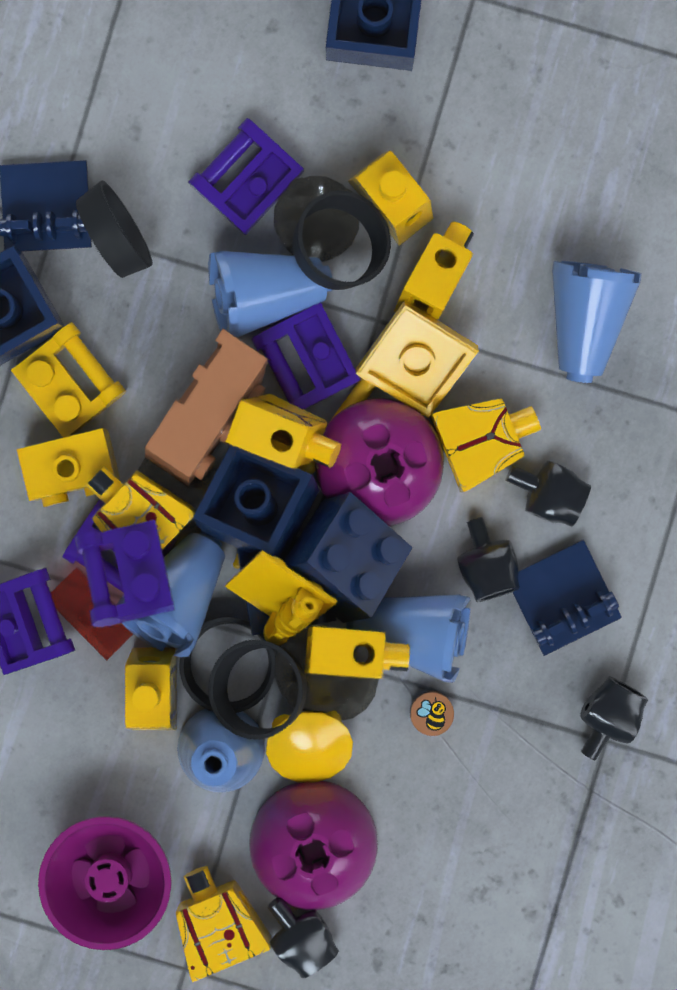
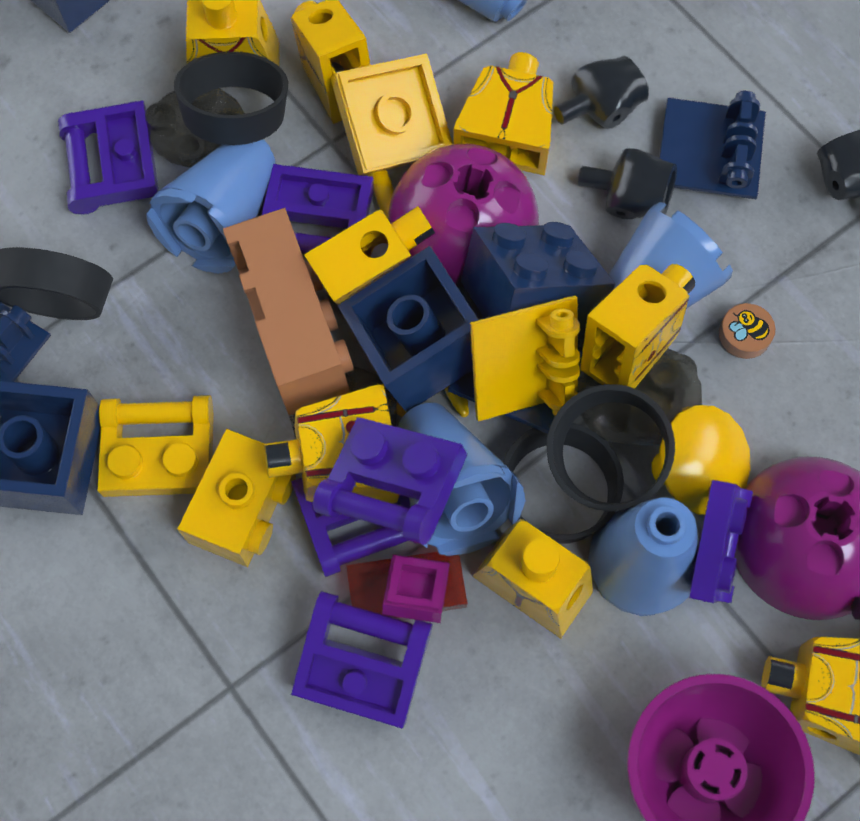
camera: 55 degrees left, 20 degrees down
(80, 631) = (416, 588): none -> magenta tile
(251, 793) = (718, 542): none -> dark purple plate

